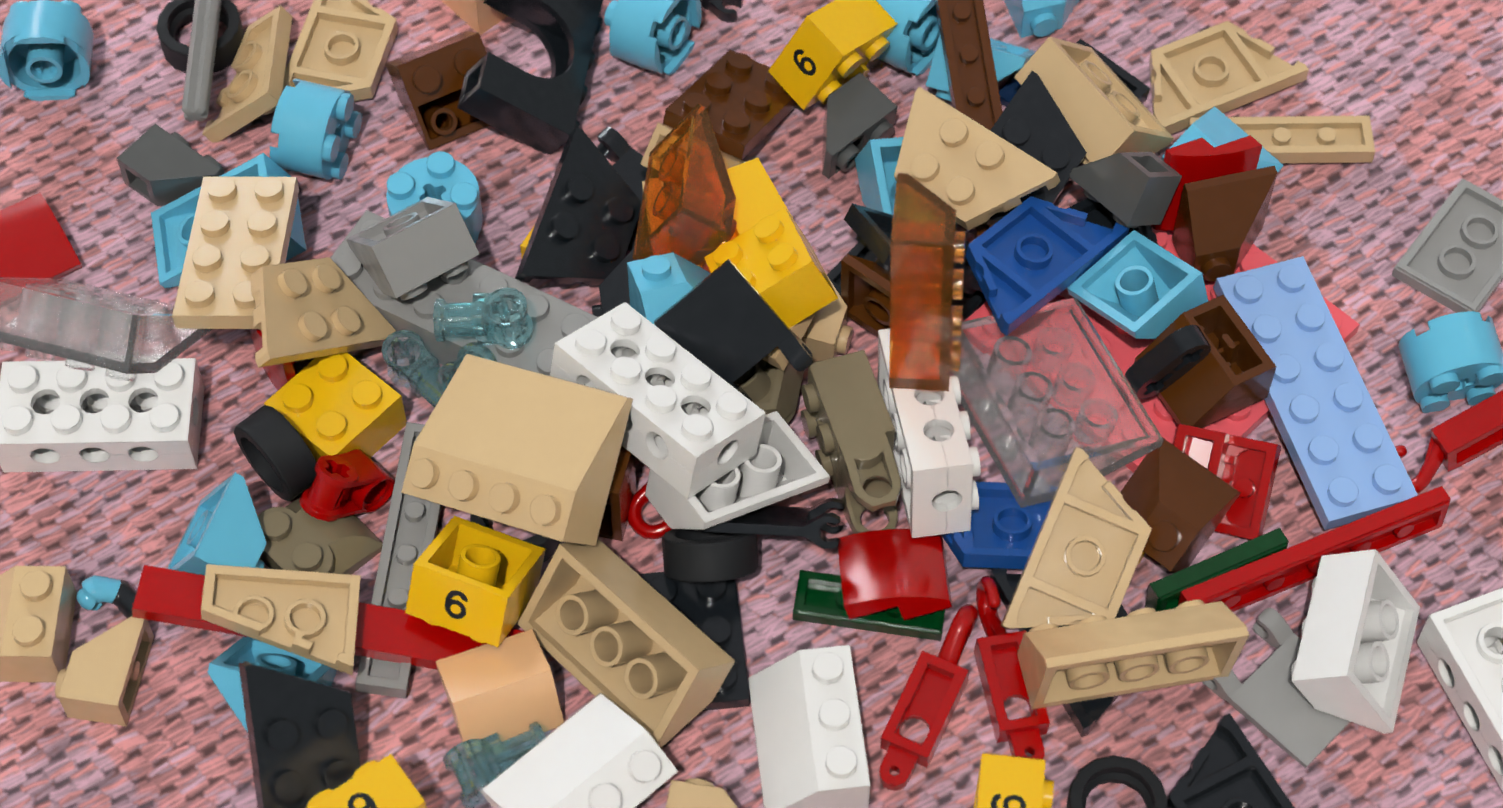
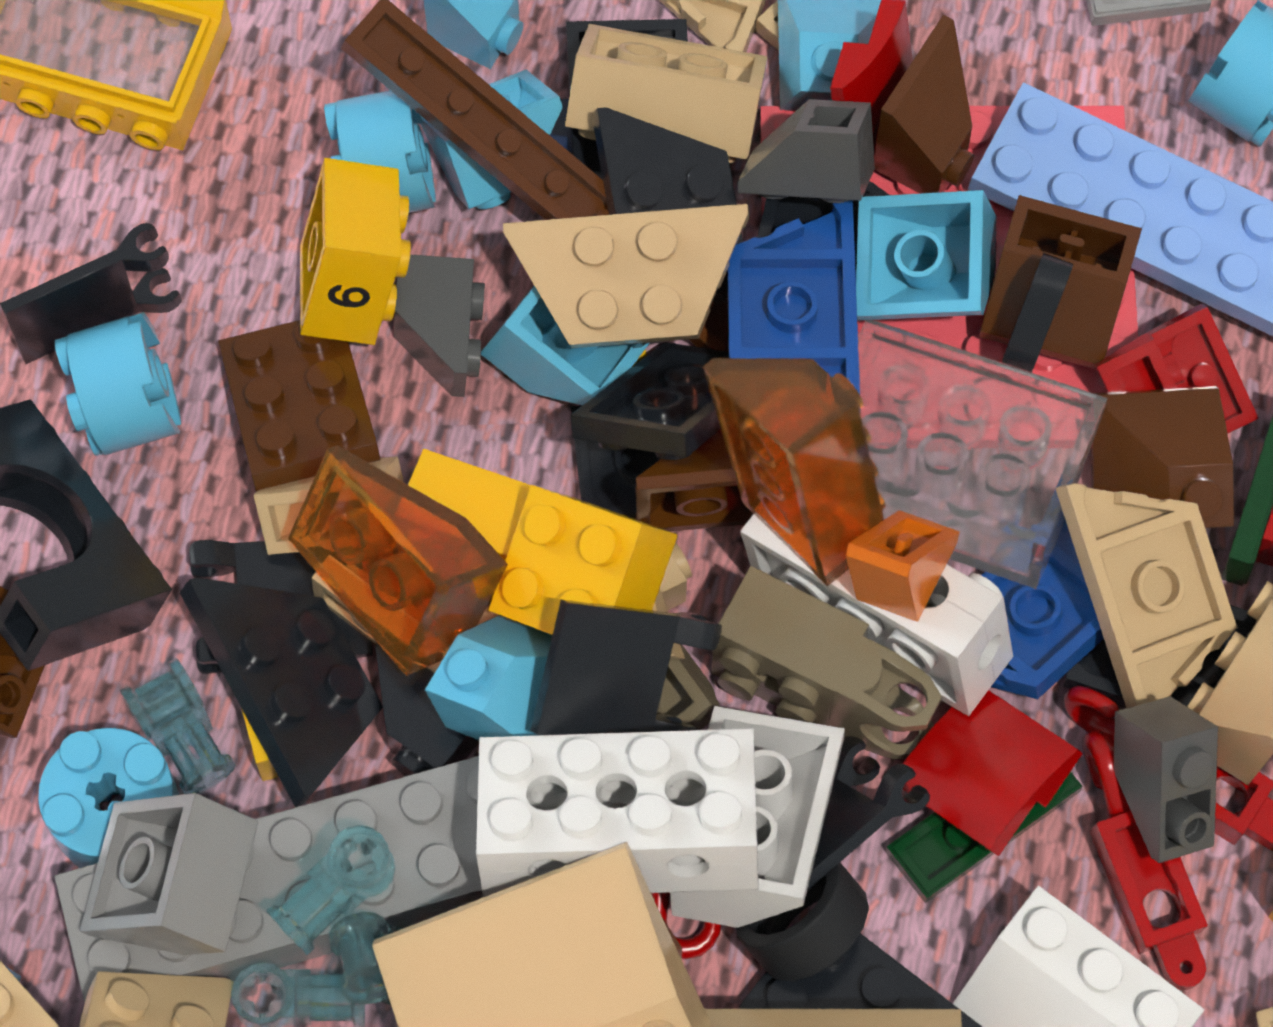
camera: 45 degrees left, 10 degrees up
(508, 203) = (174, 719): none -> clear light blue connector
(933, 397) = (900, 563): none -> orange slope
(980, 654) = (1168, 775): none -> dark grey slope

